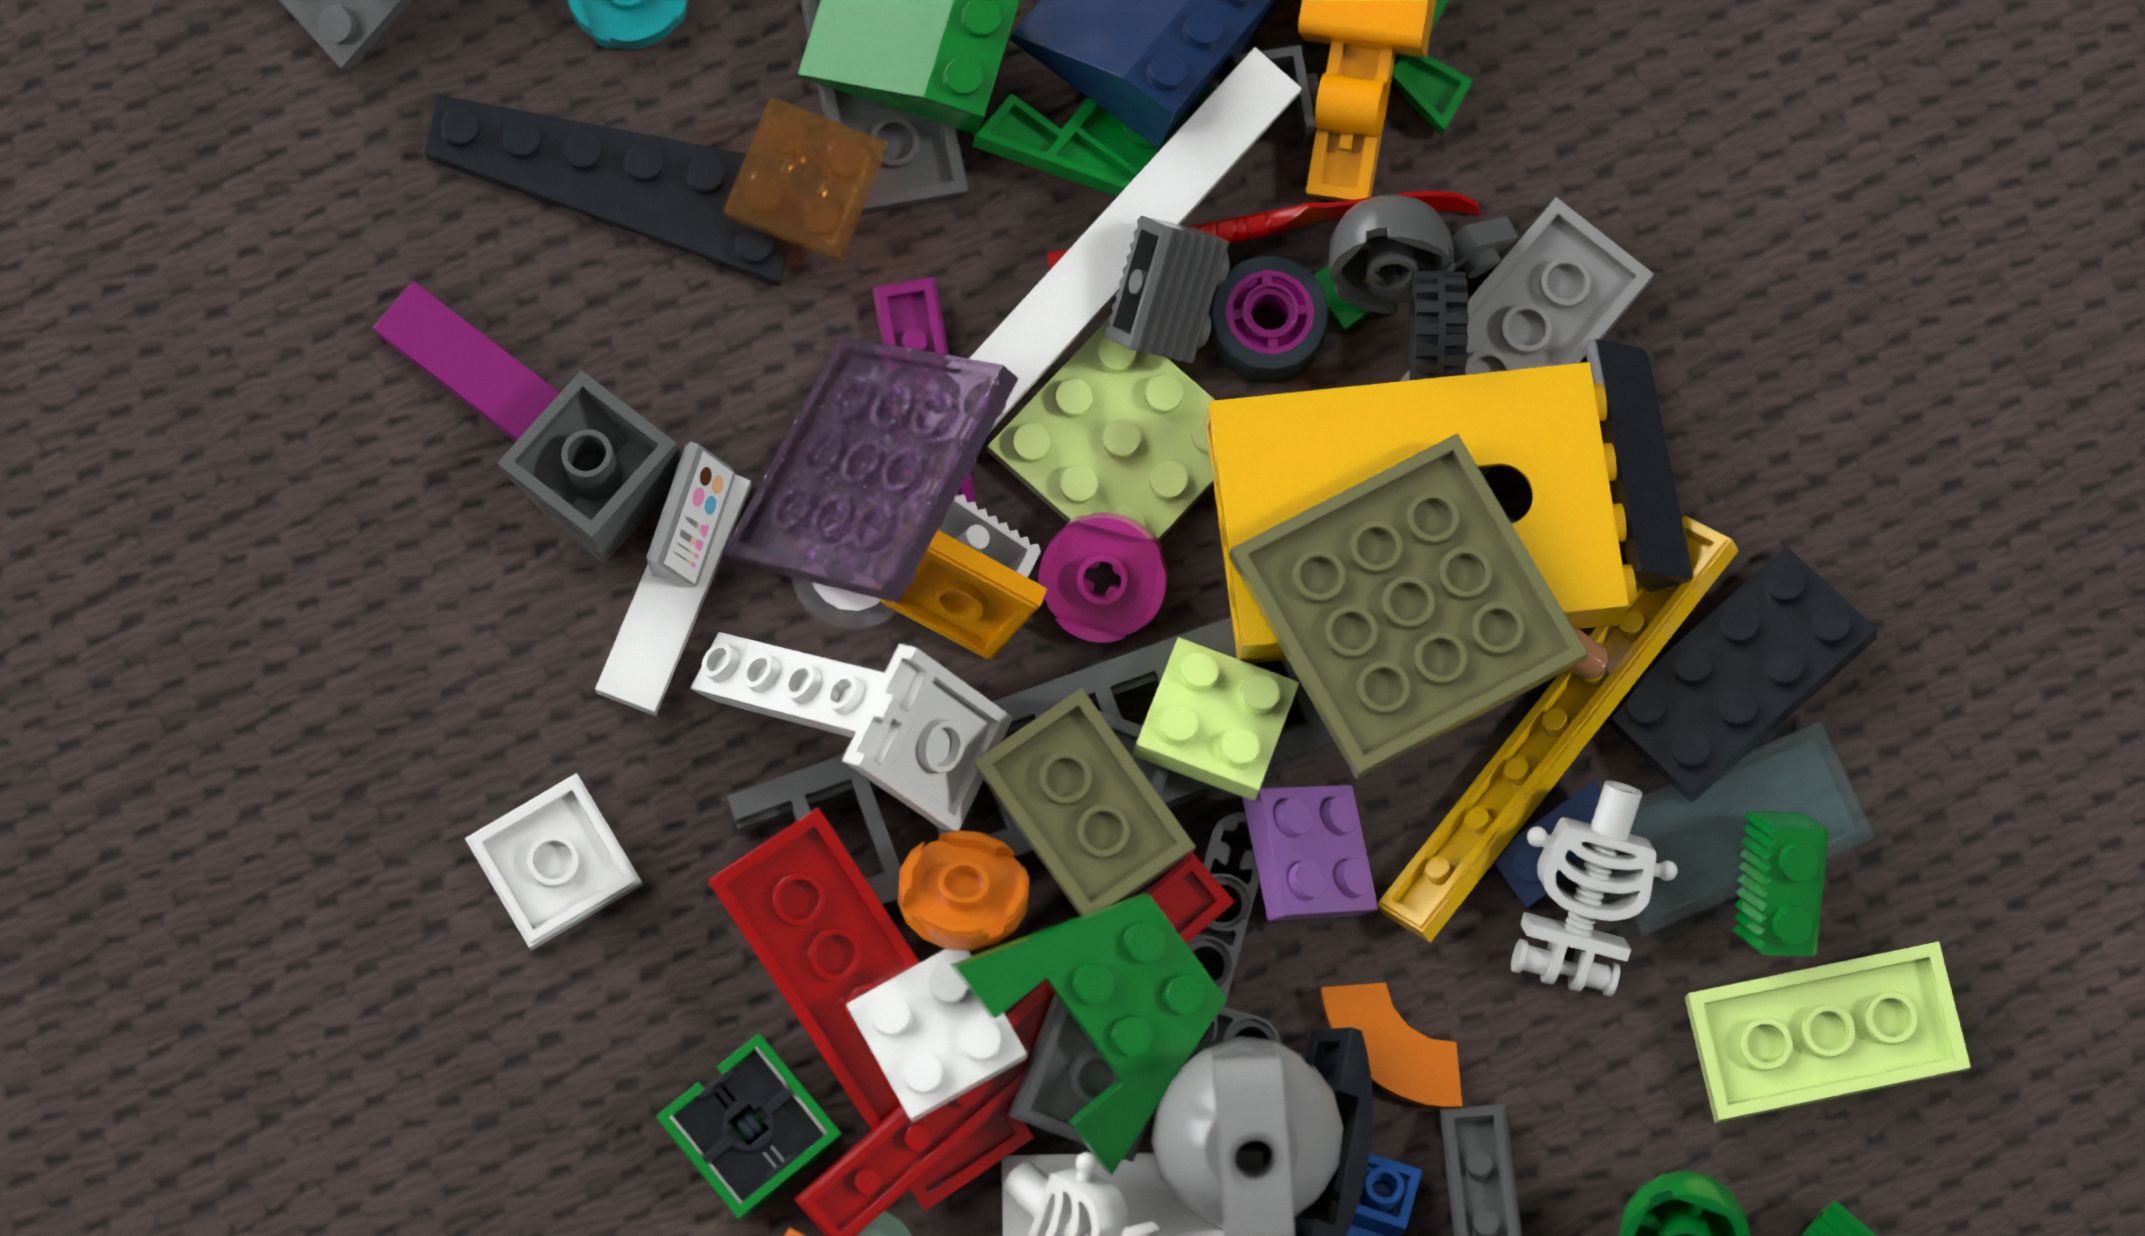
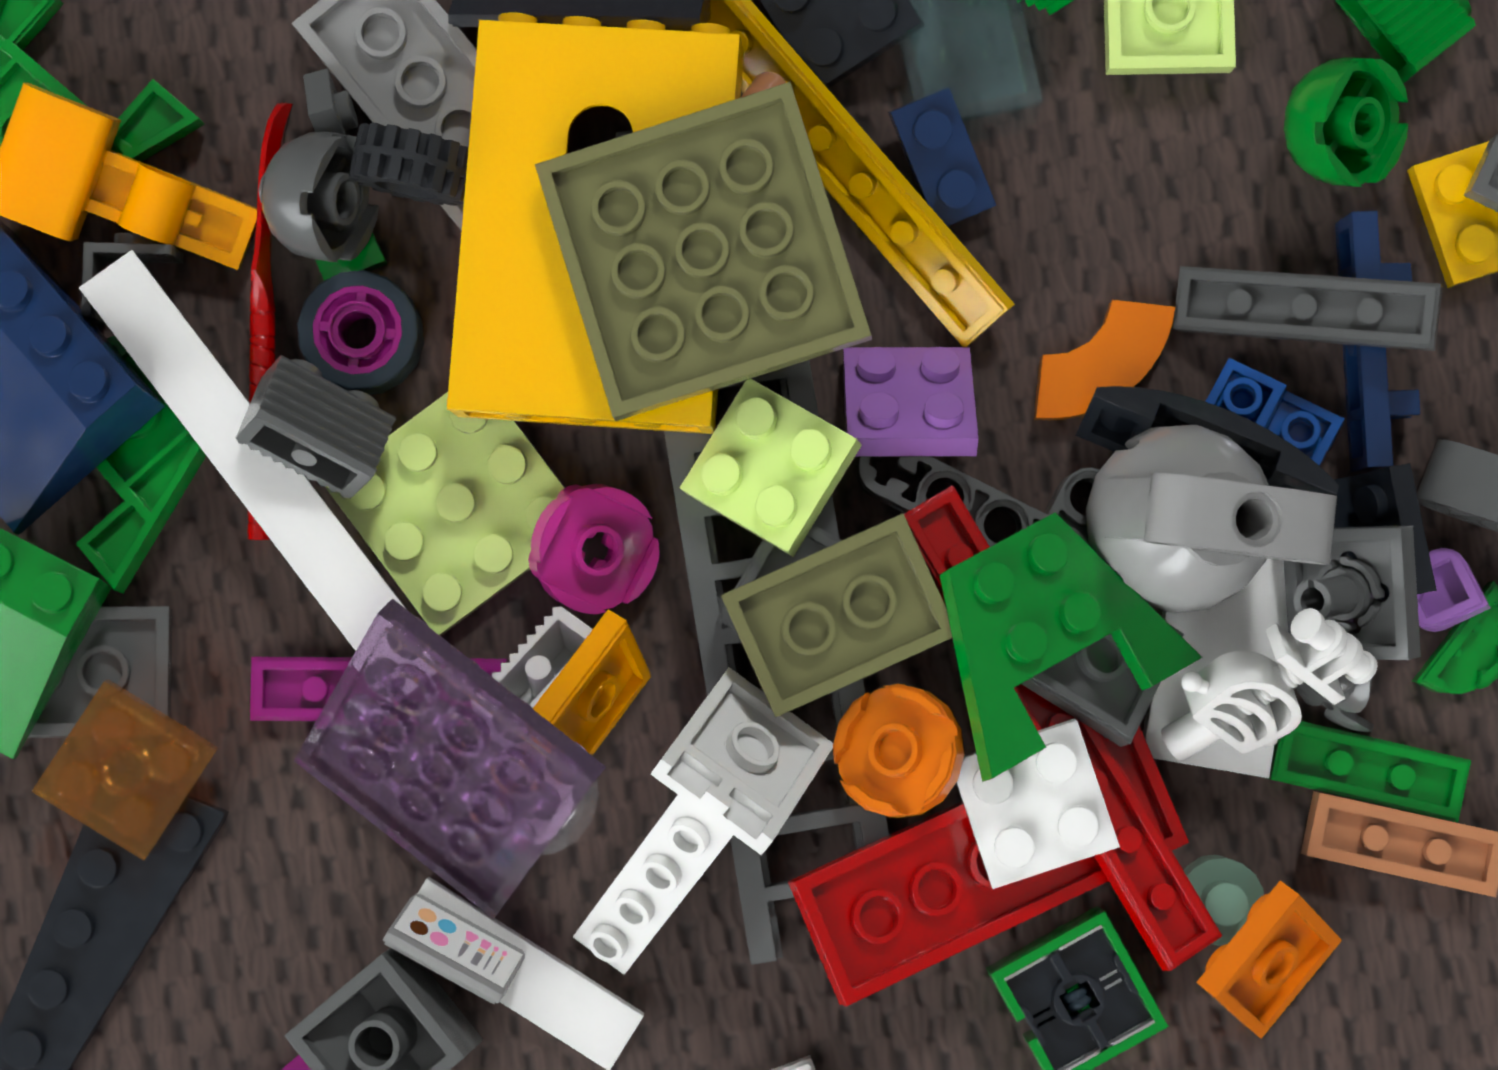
camera: 75 degrees left, 10 degrees up
(1604, 846) = (997, 118): white torso -> none

